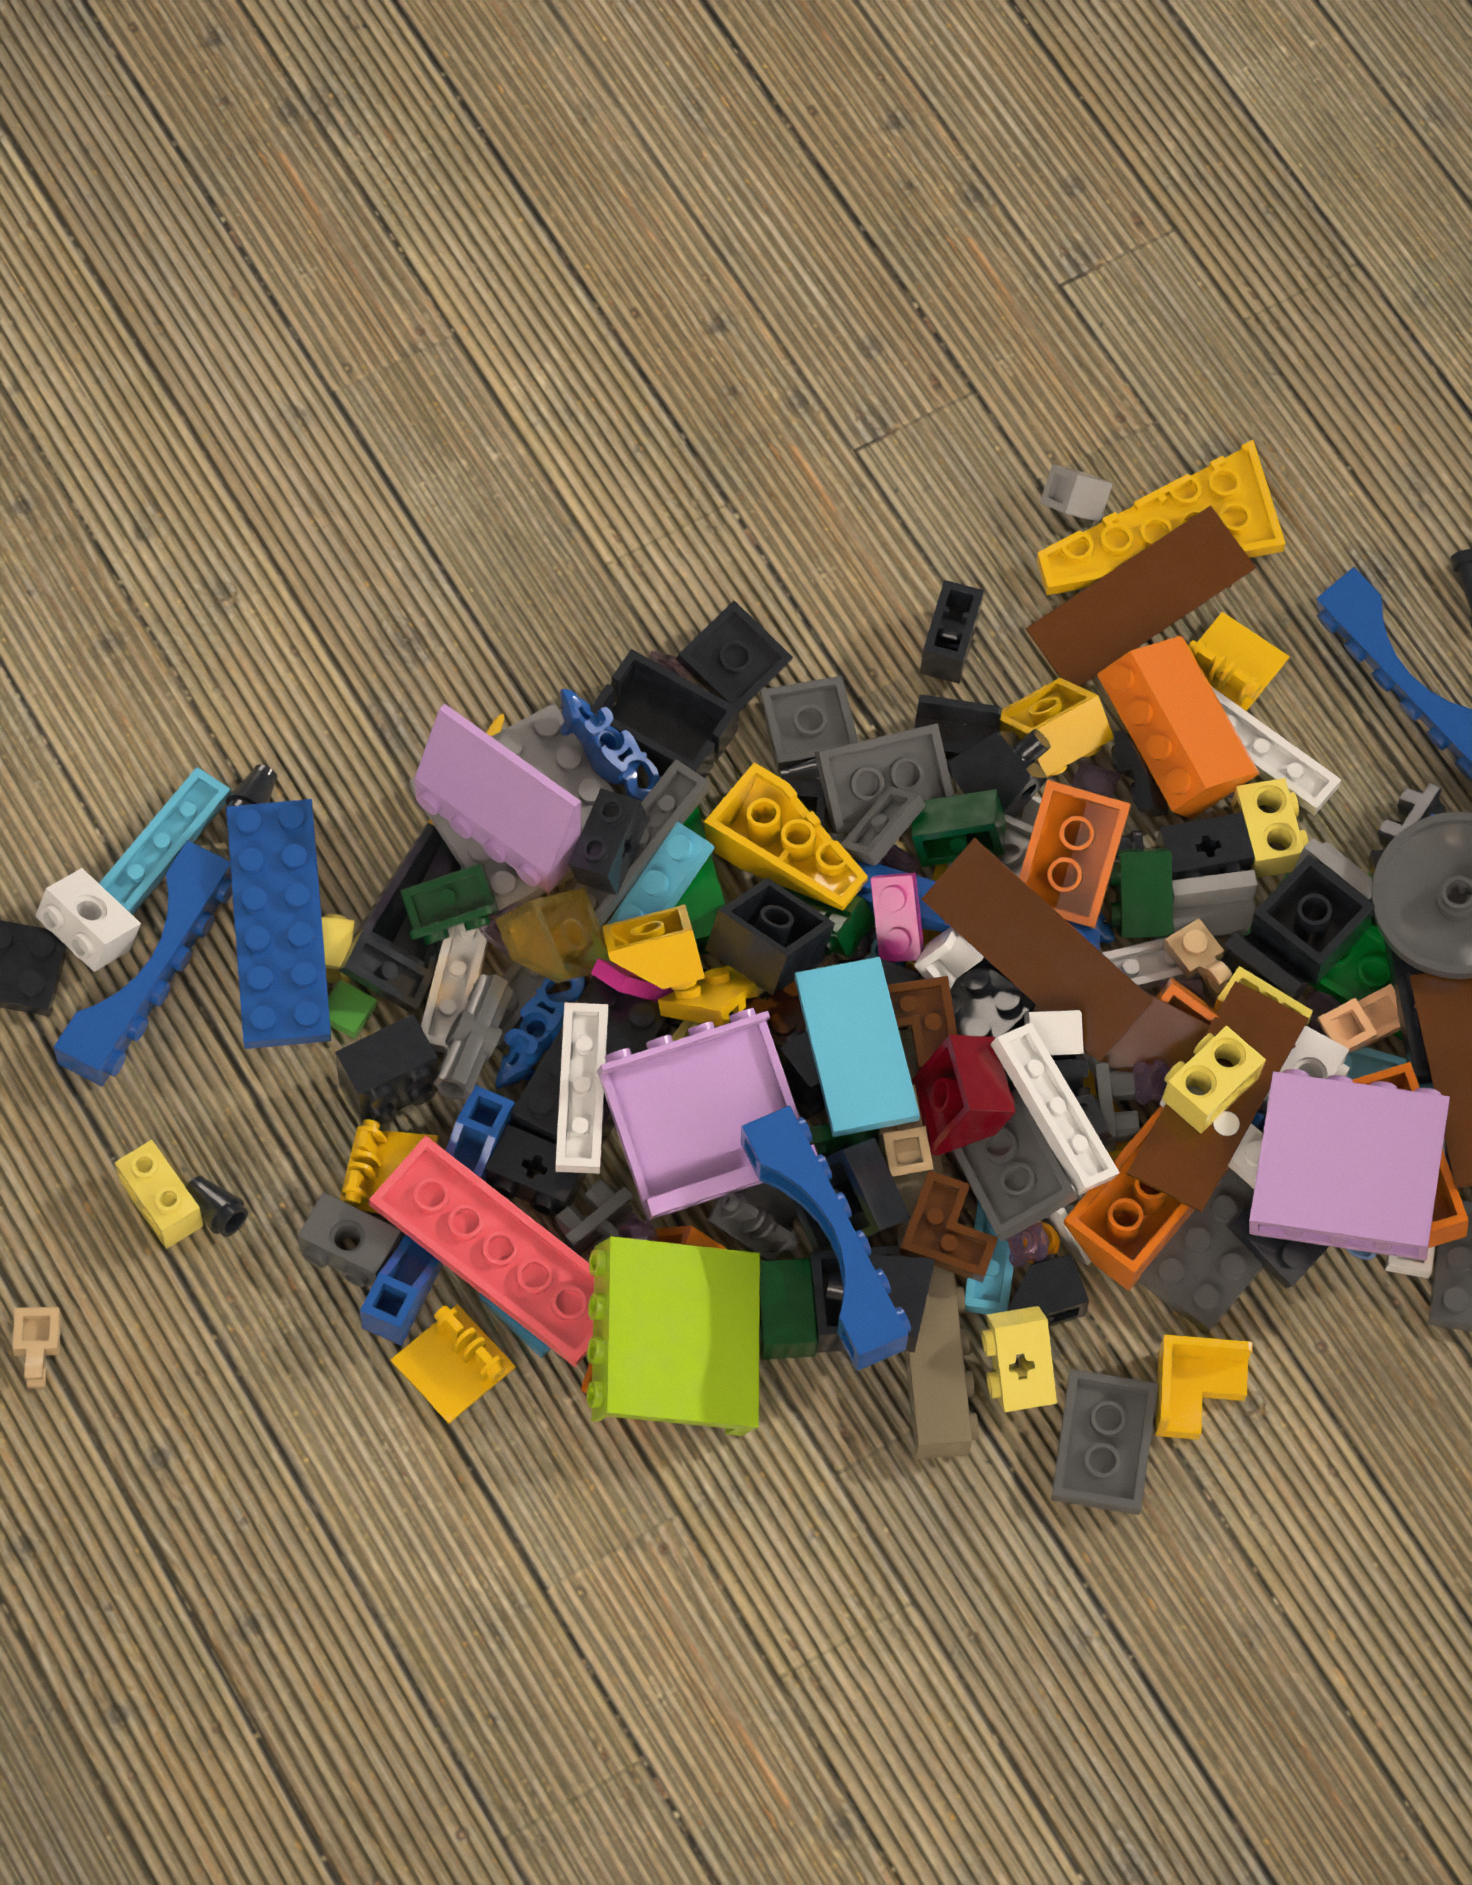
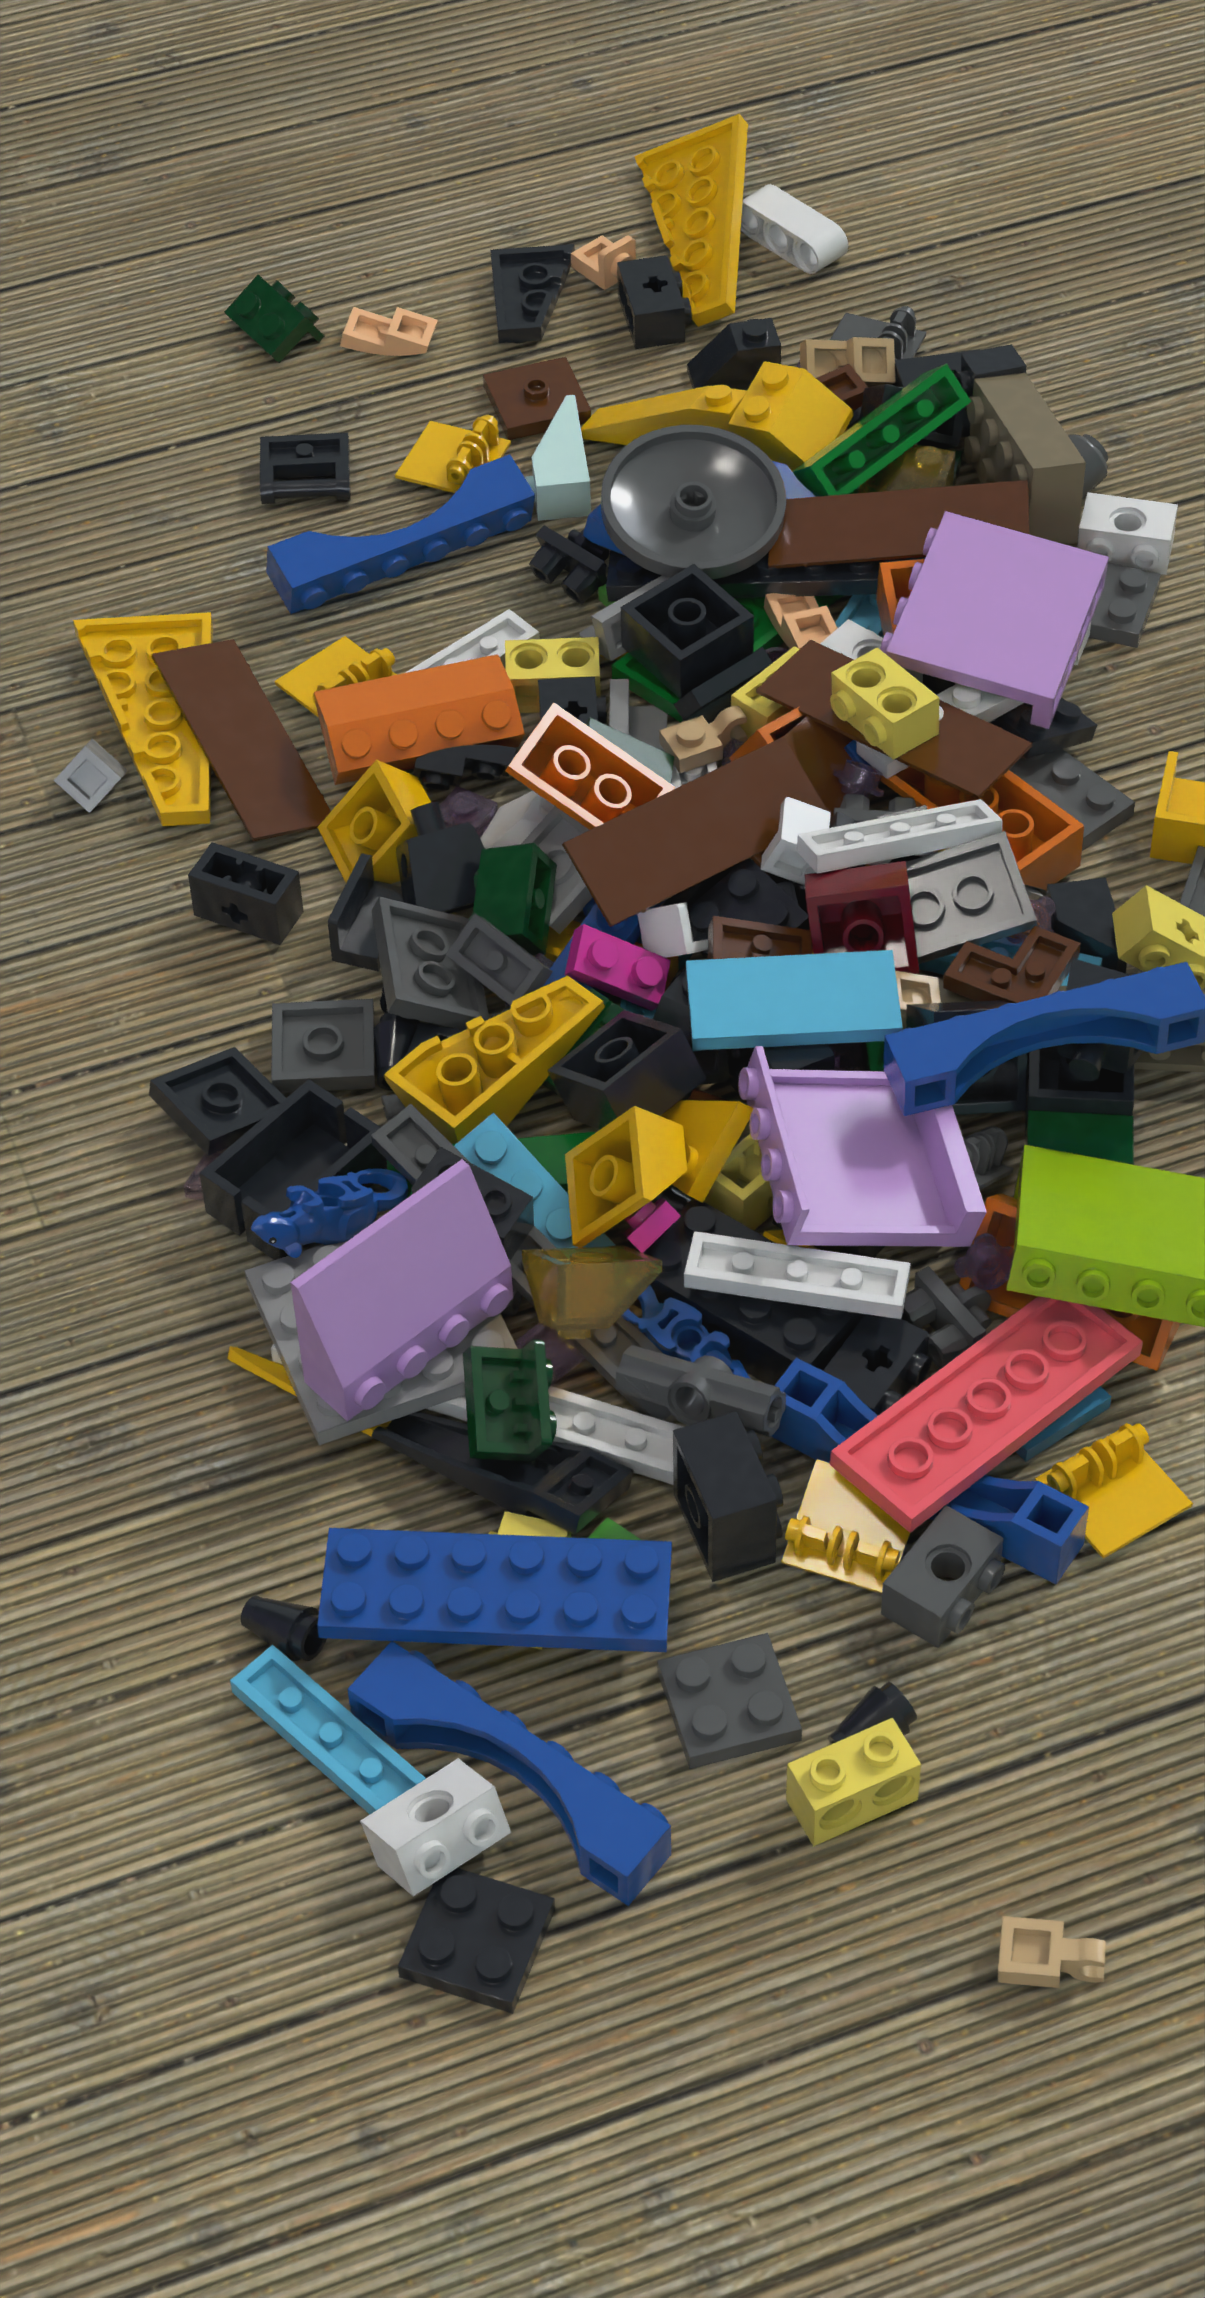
camera: 75 degrees left, 15 degrees down
(230, 1107) = (729, 1700): none -> dark grey plate

